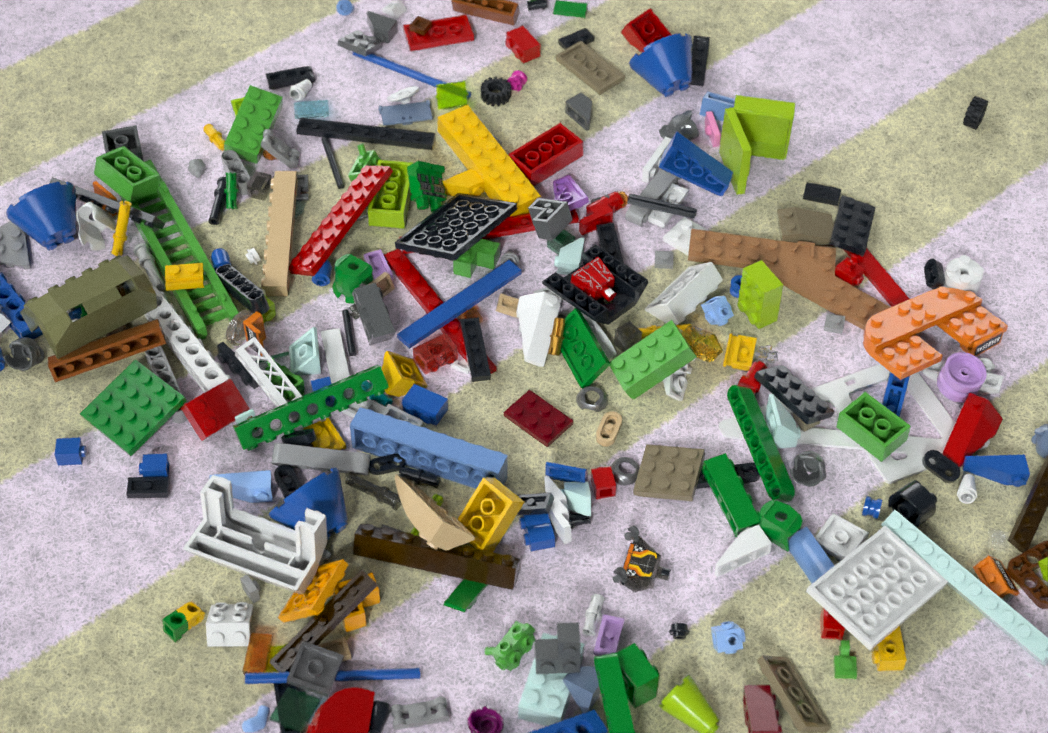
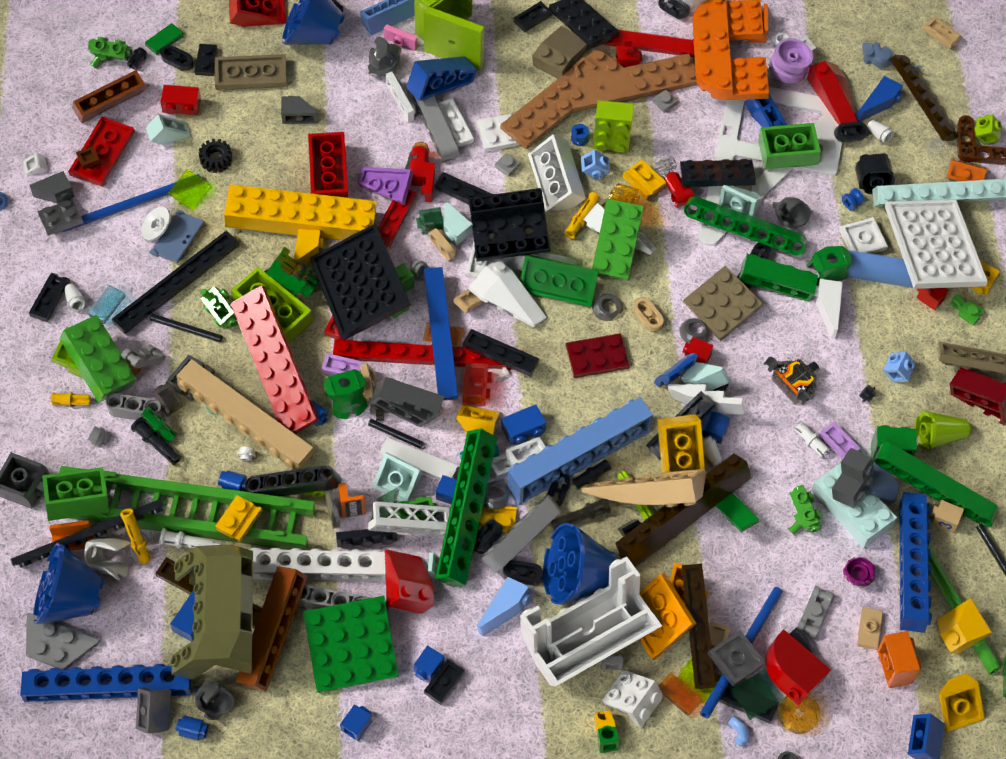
camera: 55 degrees left, 10 degrees up
(335, 427) = (495, 503): none -> flat silver piece
(490, 53) = (167, 130): none -> light aqua slope
(513, 542) = (711, 450): none -> white cone
(517, 80) = (218, 131): dark pink wheel -> none
(547, 257) = (439, 240): none -> tan plate
(549, 217) = (412, 207): dark grey brick -> none
(557, 336) = (533, 288): pearl gold axle -> none
(559, 23) = (178, 57): none -> black plate
(595, 280) = (510, 222): red torso -> none
(627, 336) = (574, 242): clear smoke brick -> none
(662, 206) = (459, 127): black axle -> none

